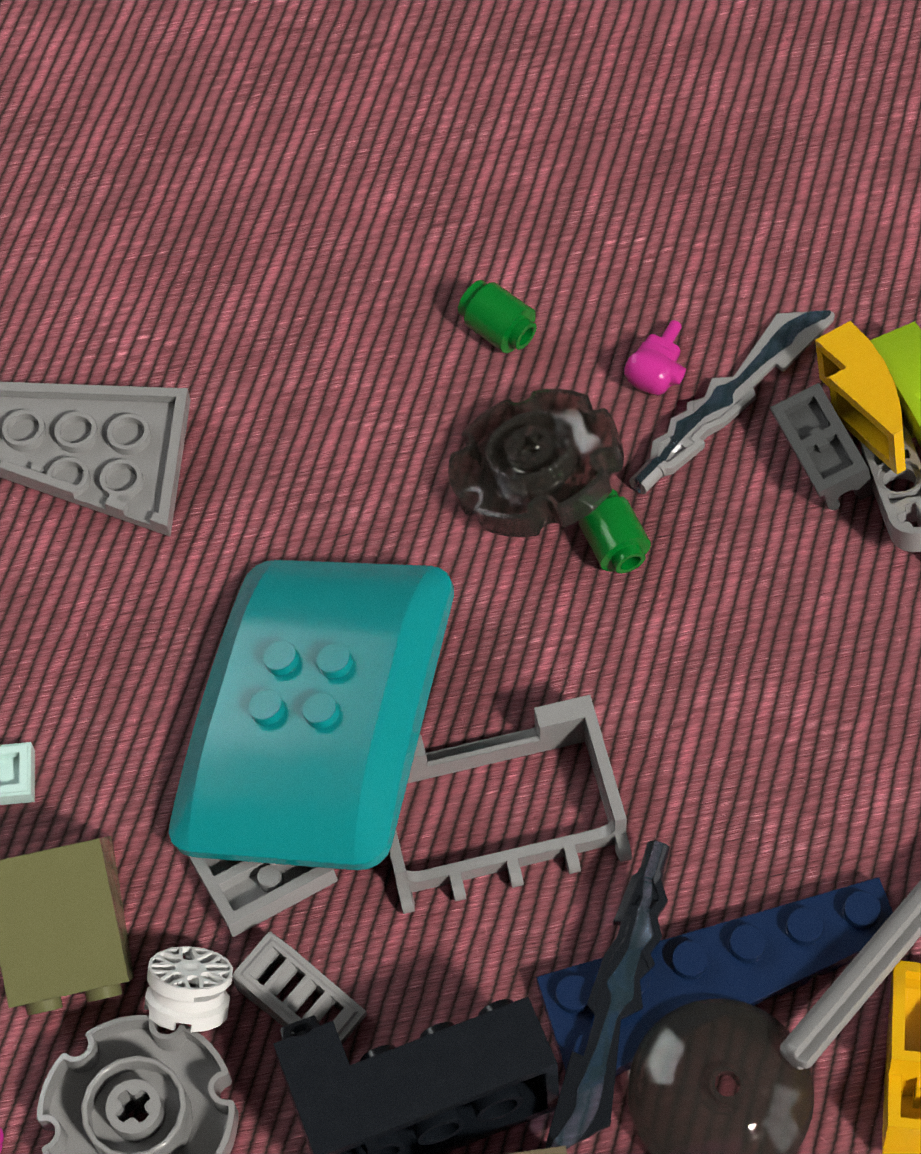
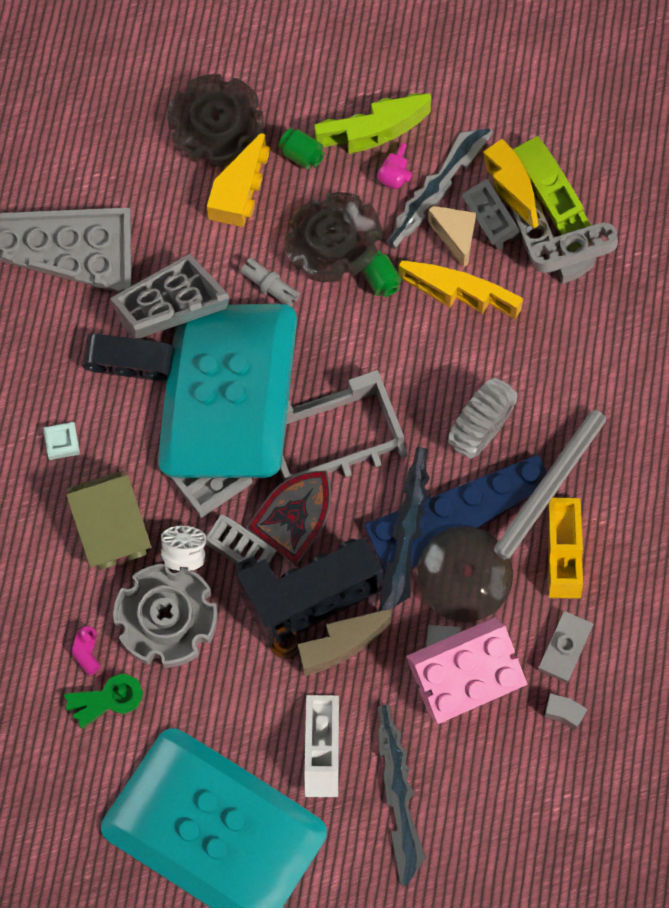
camera: 10 degrees left, 10 degrees up
(143, 637) = (127, 357): none -> black beam
(229, 541) = (169, 298): none -> light grey wedge
(356, 261) = (209, 99): none -> clear smoke piece
(373, 369) = (234, 187): none -> yellow slope
(406, 946) = (294, 514): none -> shield
(415, 531) = (269, 282): none -> light grey pin
(647, 287) = (386, 122): none -> lime slope
(739, 560) = (449, 284): none -> yellow slope
(753, 467) = (454, 229): none -> tan slope
(777, 797) = (482, 417): none -> light grey gear

